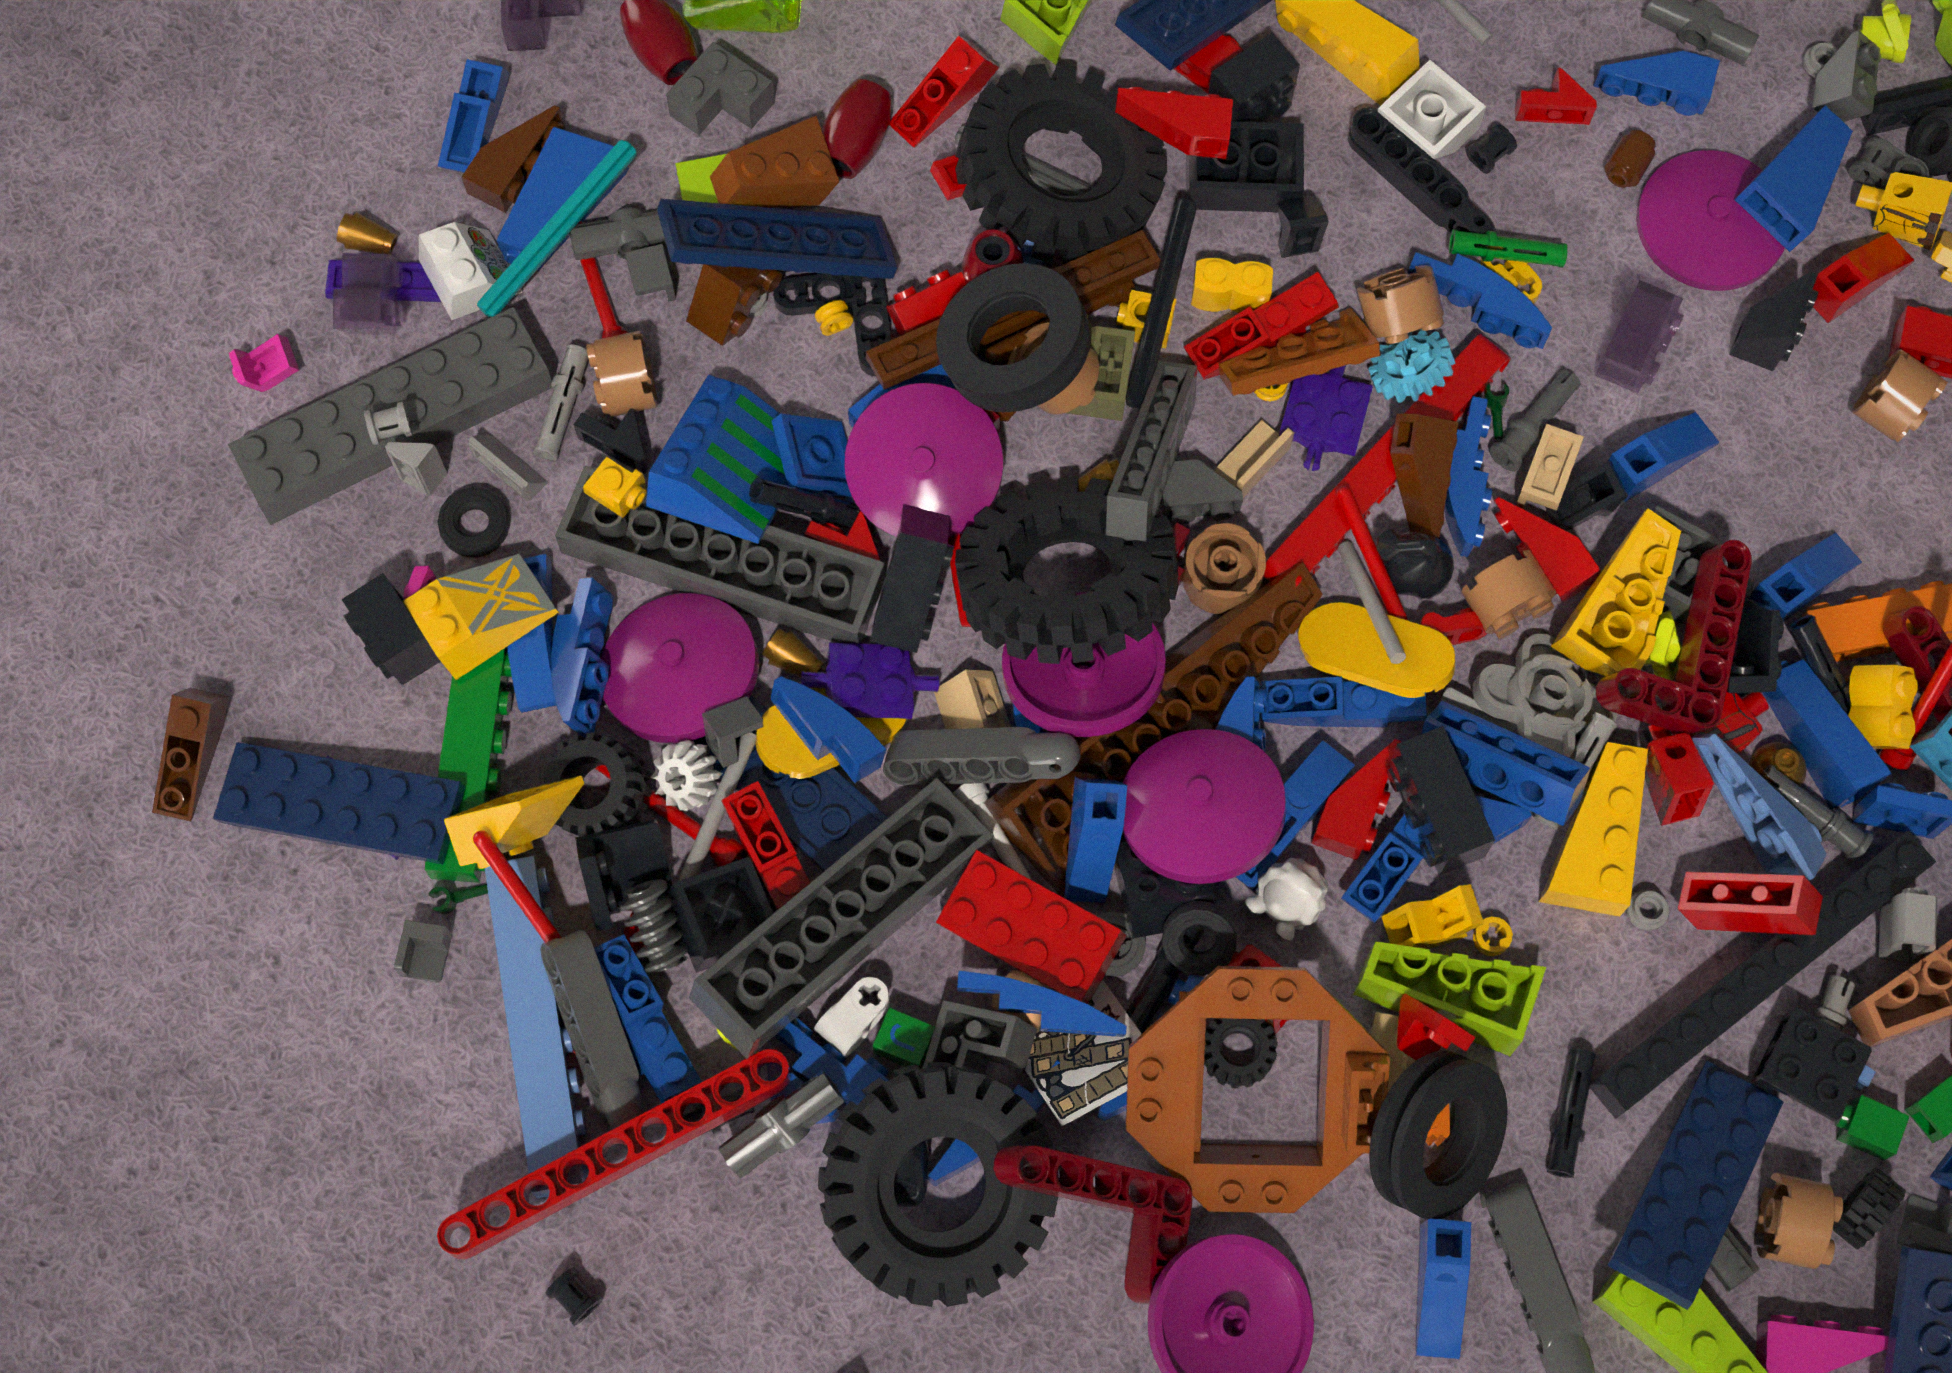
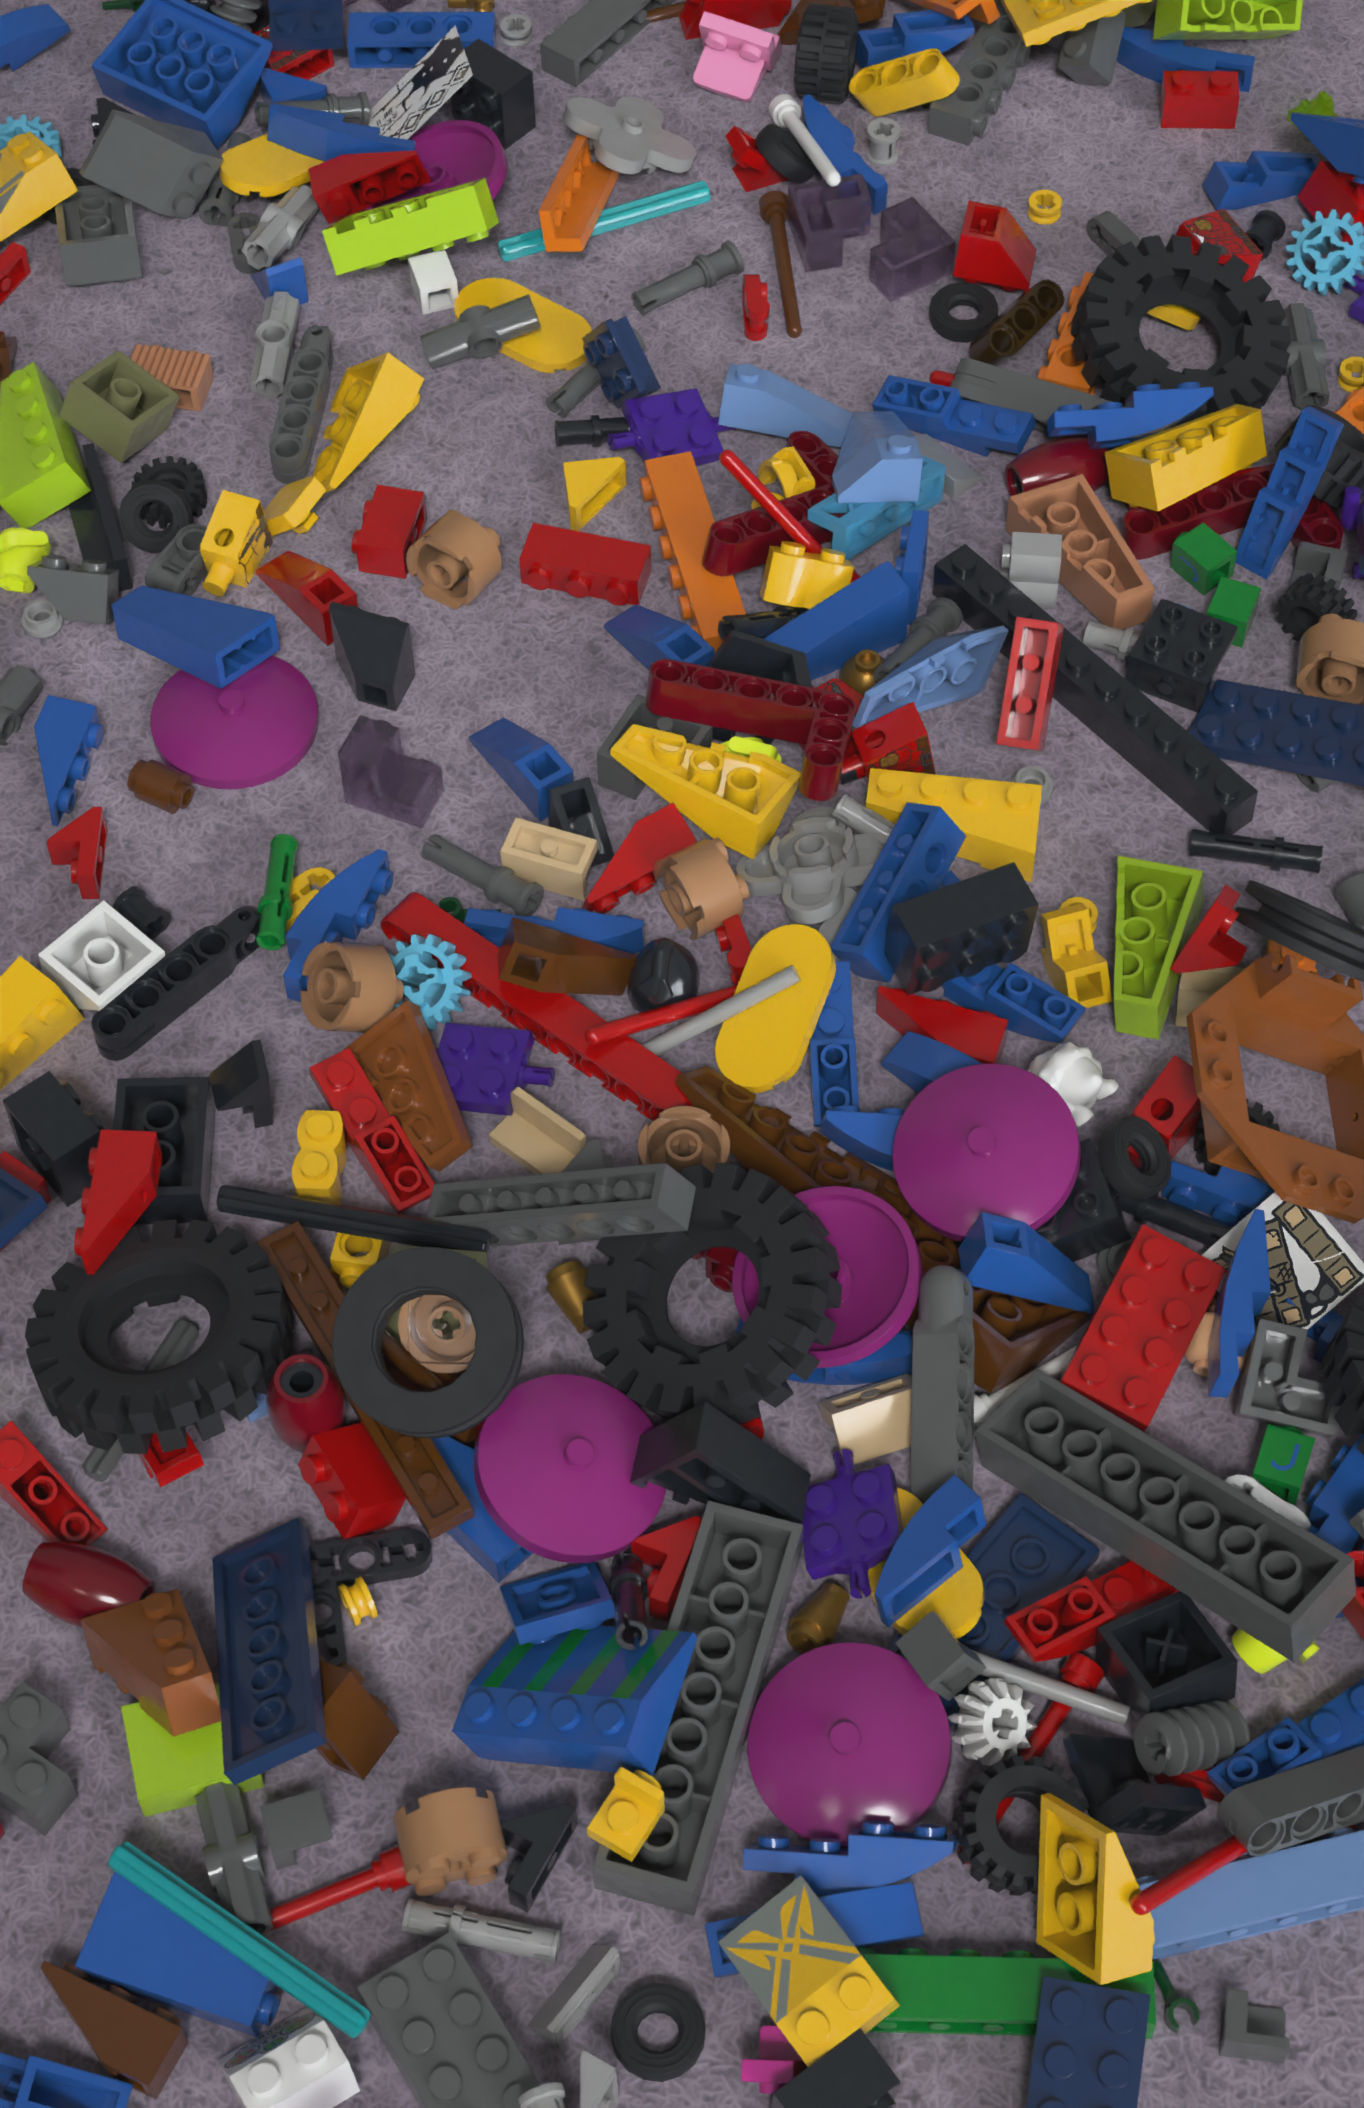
camera: 90 degrees left, 15 degrees down
(1904, 515) = (585, 564): none -> red brick

